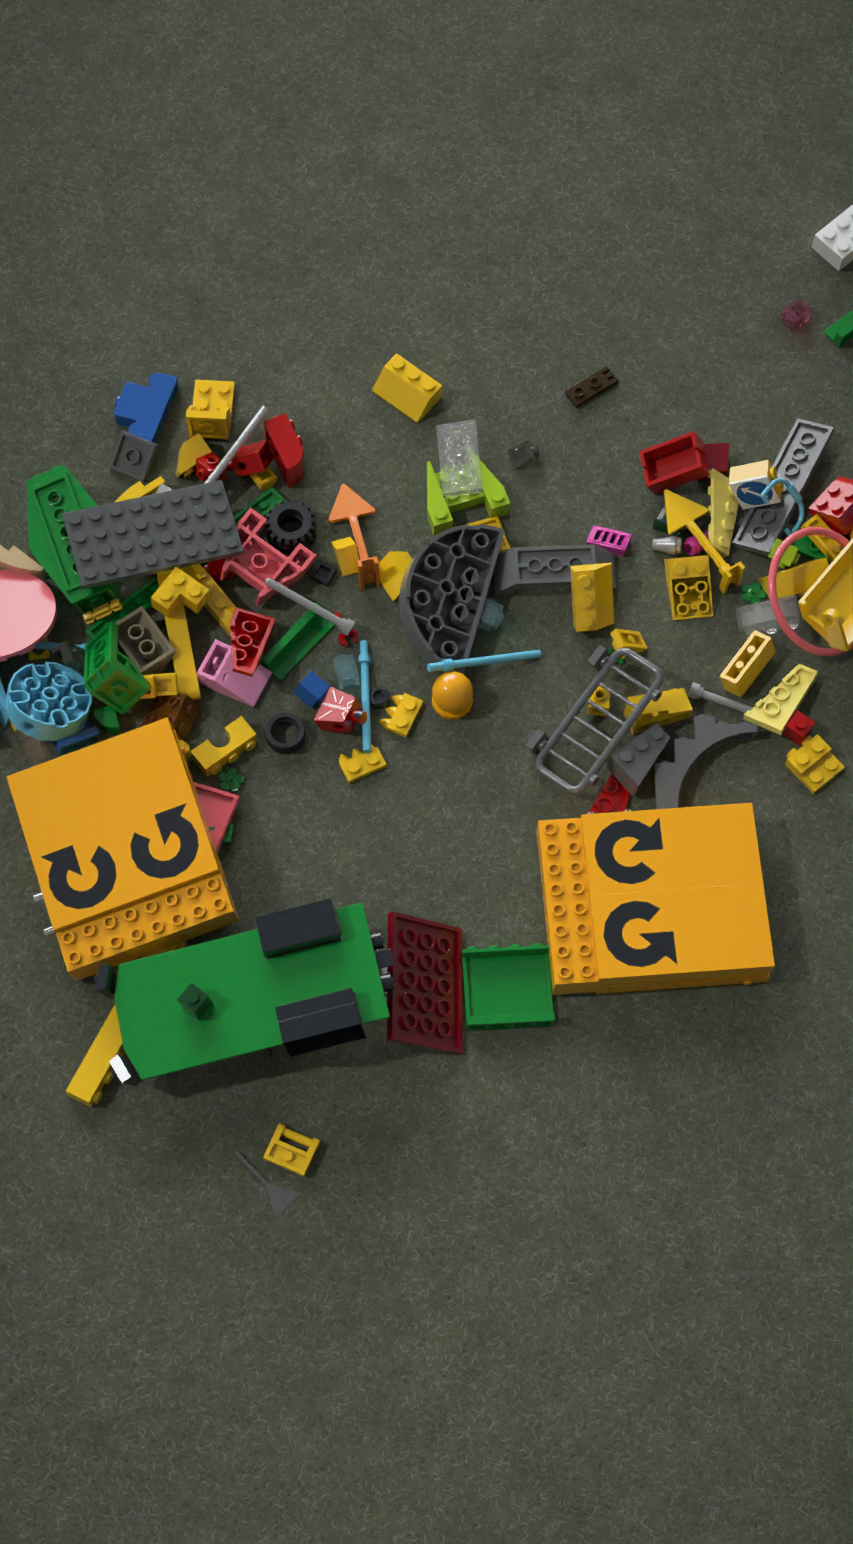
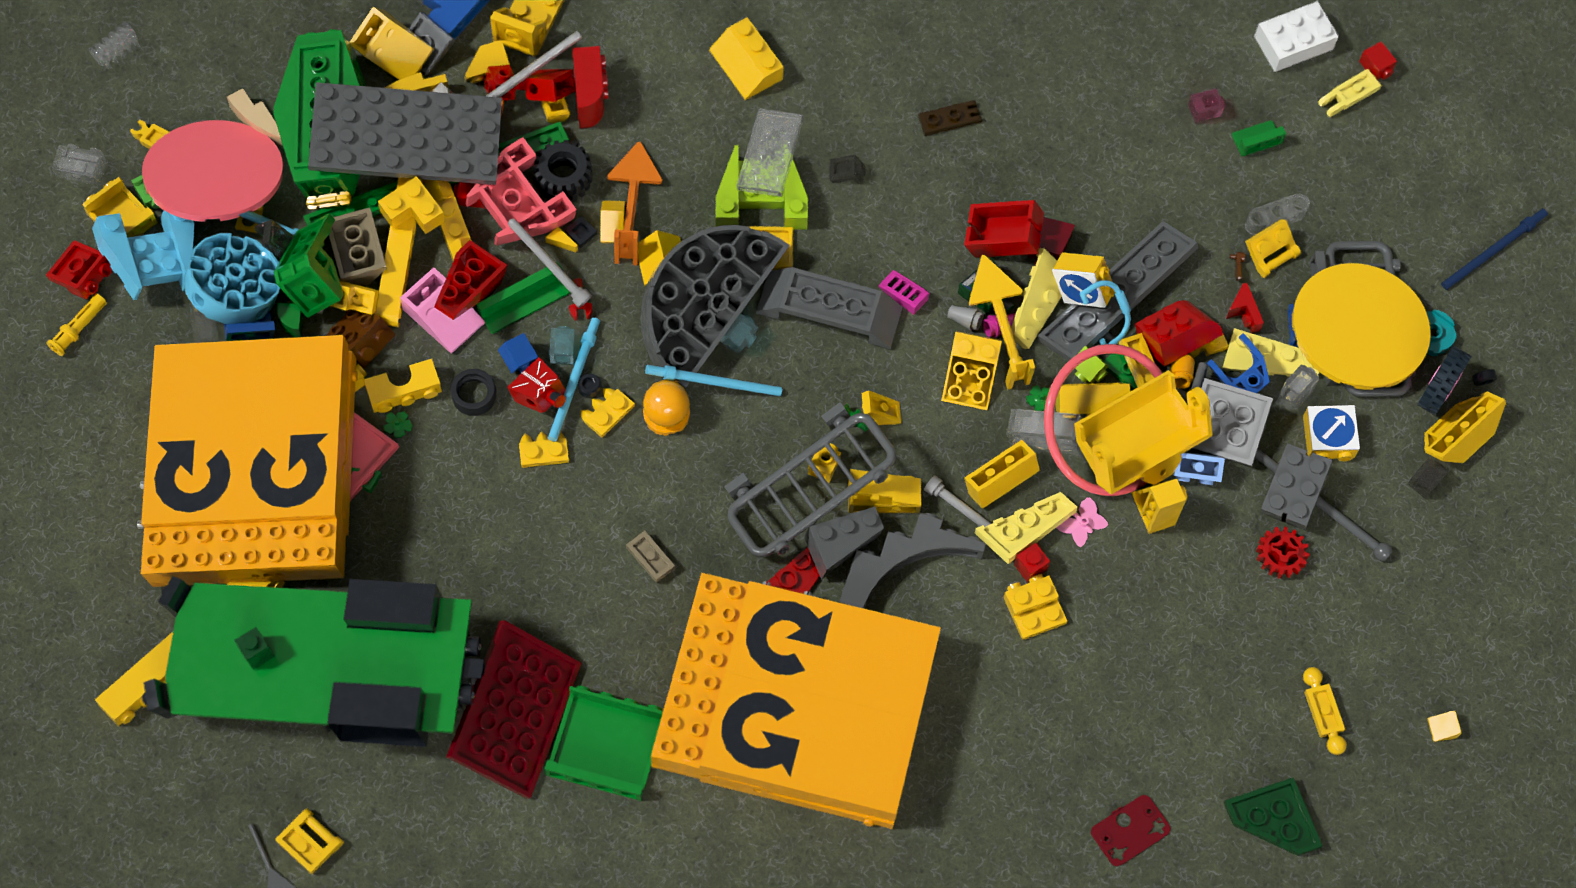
camera: 15 degrees right, 0 degrees up
(106, 465) = (390, 44): none -> yellow slope
(311, 585) = (560, 239): none -> yellow piece
(485, 822) = (650, 556): none -> dark tan plate
(592, 596) = (858, 347): yellow slope -> none
(826, 683) = (1084, 522): none -> bright pink piece

